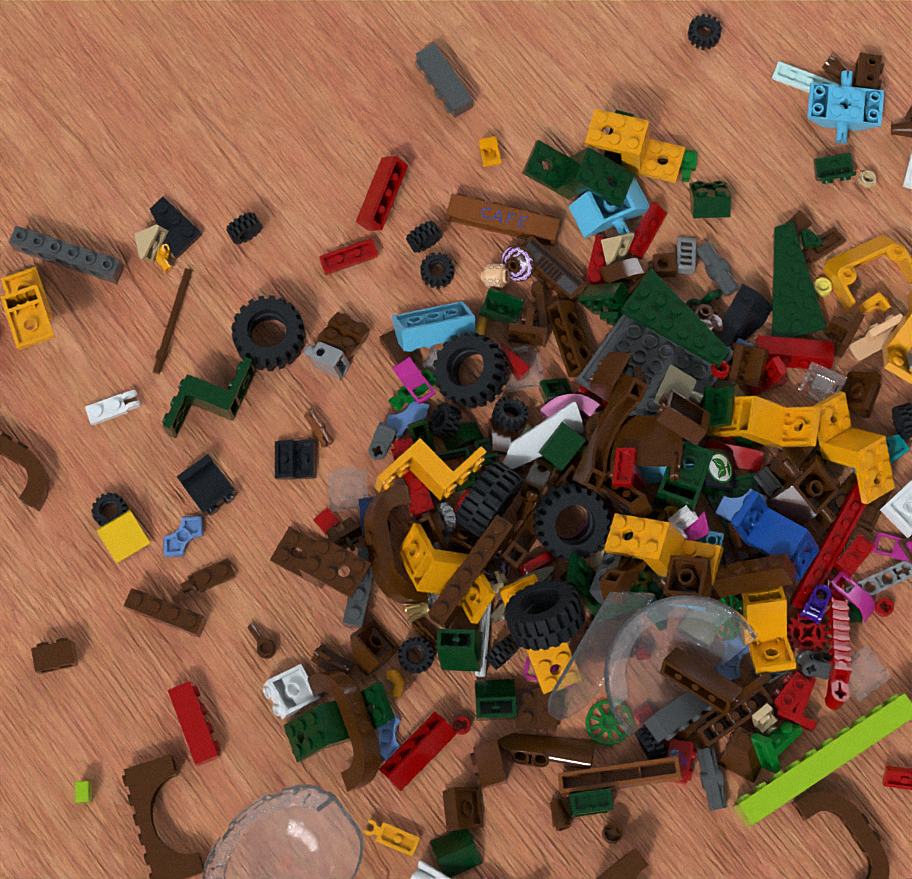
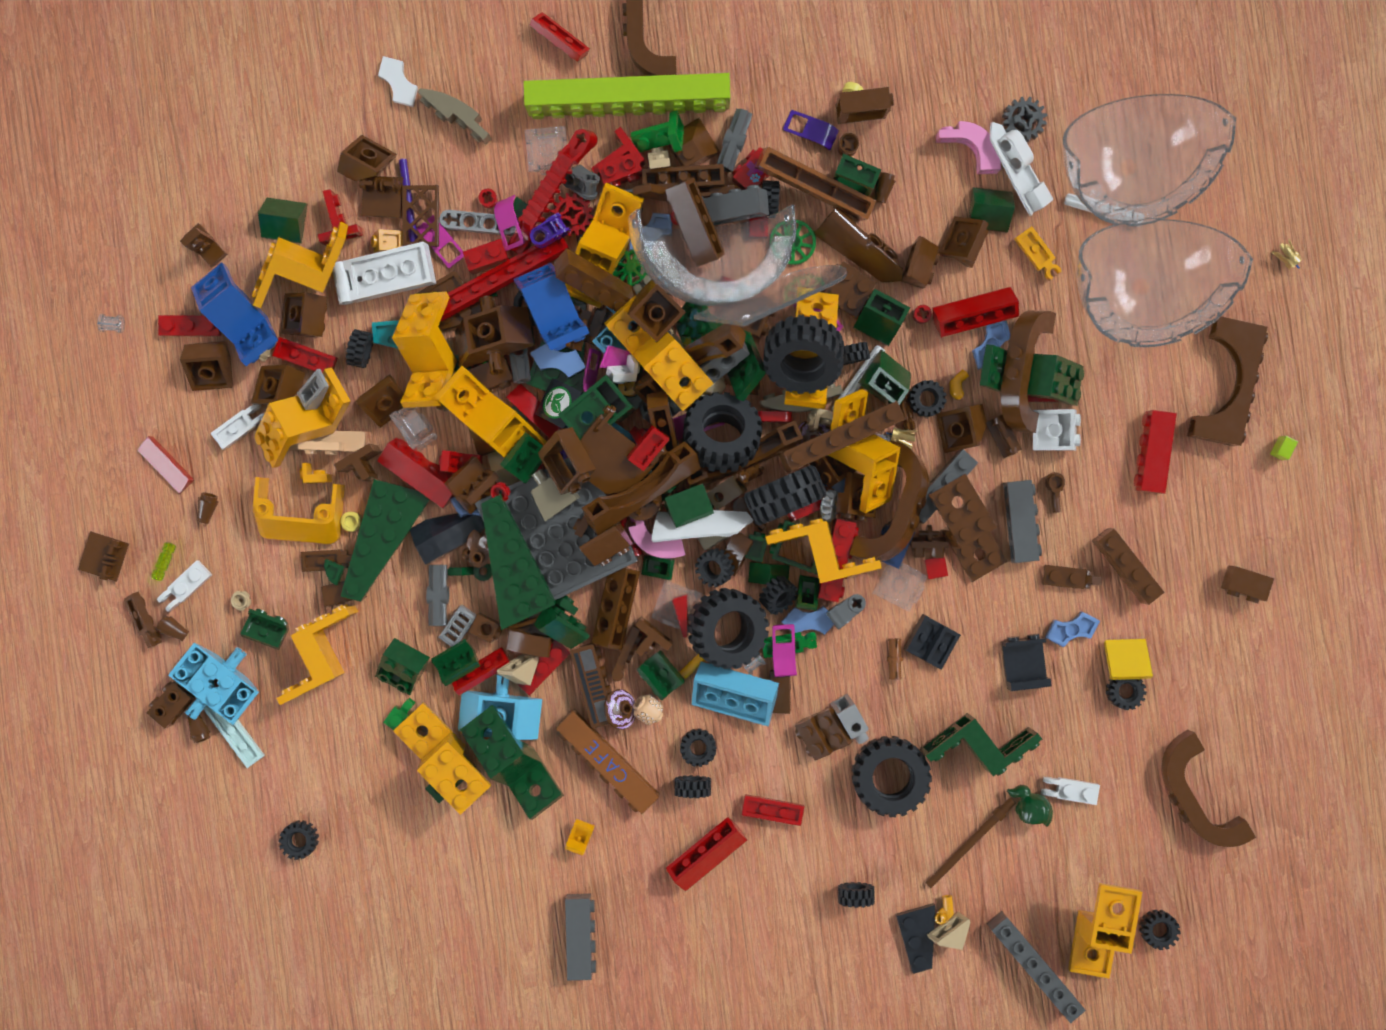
camera: 150 degrees left, 15 degrees up
(137, 373) = (1032, 807): none -> dark green hair
(277, 599) = (1021, 521): none -> dark grey brick
(648, 830) = (814, 130): none -> dark purple piece
(669, 226) = (456, 662): none -> dark green bracket
(705, 505) = (591, 375): none -> dark pink piece
(782, 171) = (317, 652): none -> light orange bracket

